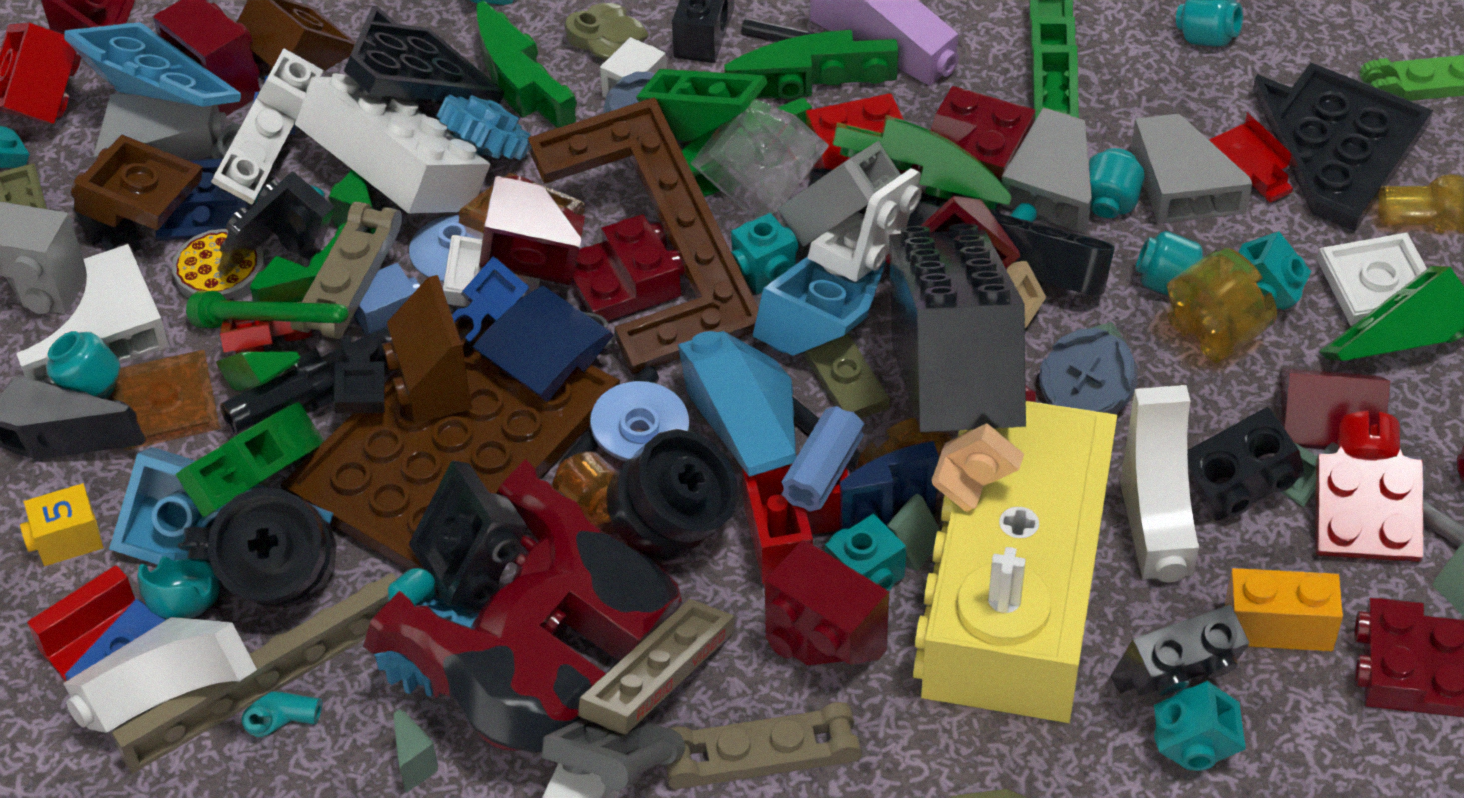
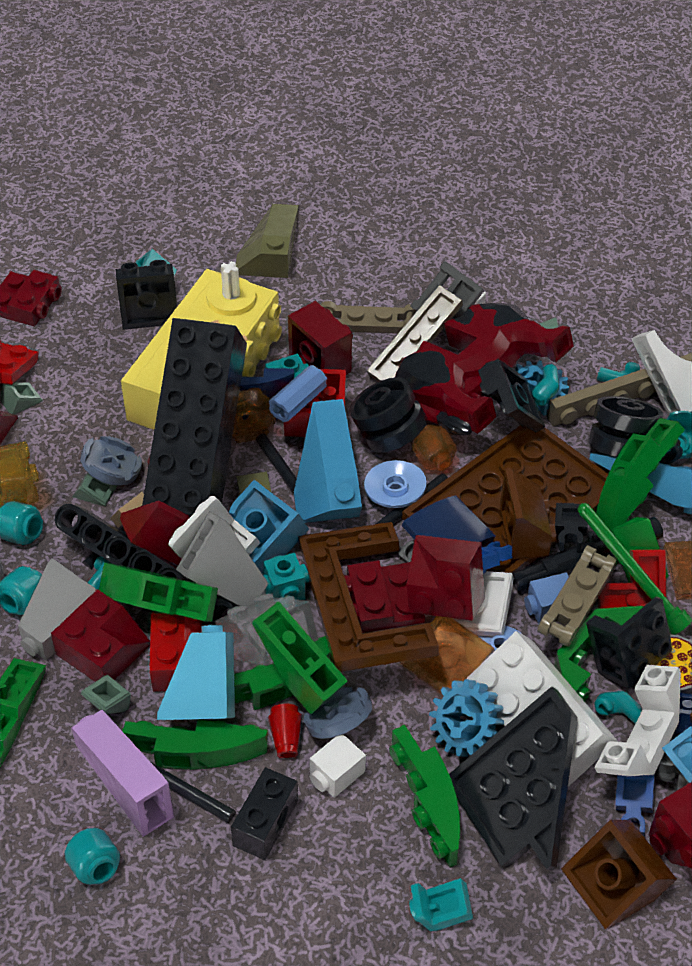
camera: 170 degrees left, 0 degrees up
(603, 29) = (344, 836): olive plate -> none
(815, 76) = (203, 678): none -> medium azure slope
(933, 85) = (107, 695): none -> sand green slope
(1158, 484) = (105, 368): white arch -> none
(1236, 456) = (54, 387): black brick -> none
(1287, 608) = (78, 319): light orange brick -> none

